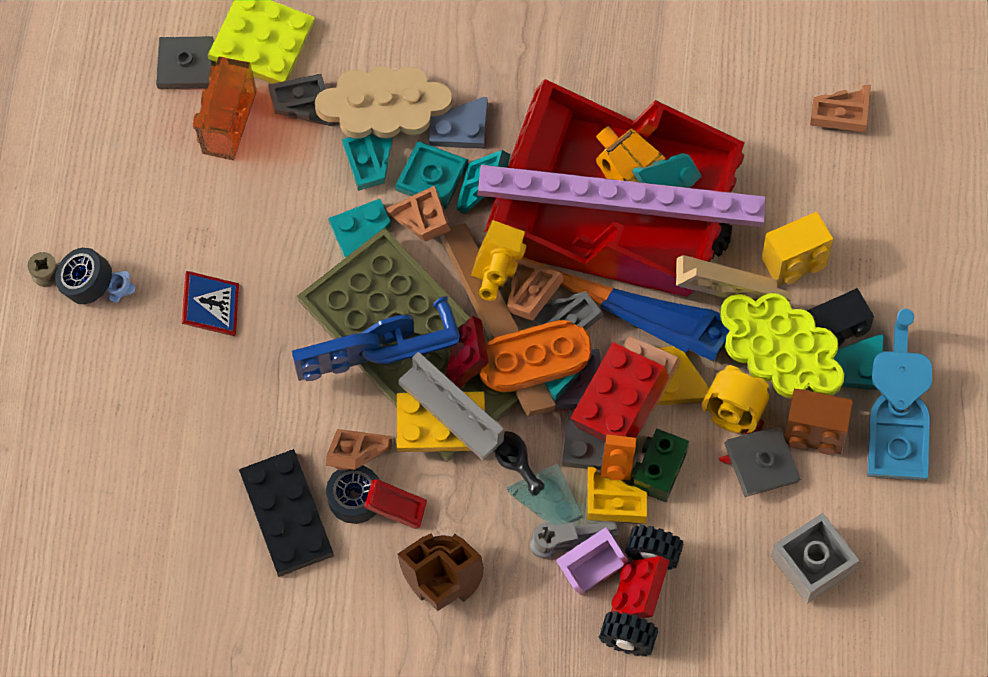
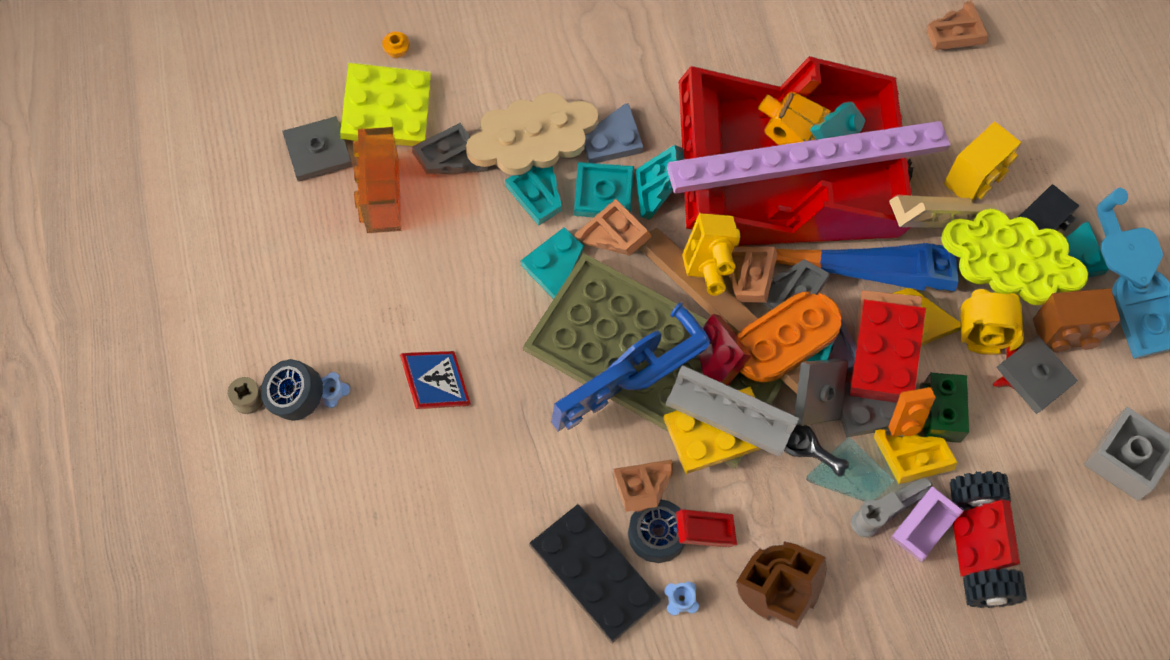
camera: 25 degrees left, 0 degrees up
(348, 549) = (682, 589): none -> light blue plate
(544, 414) = (820, 391): none -> dark grey plate

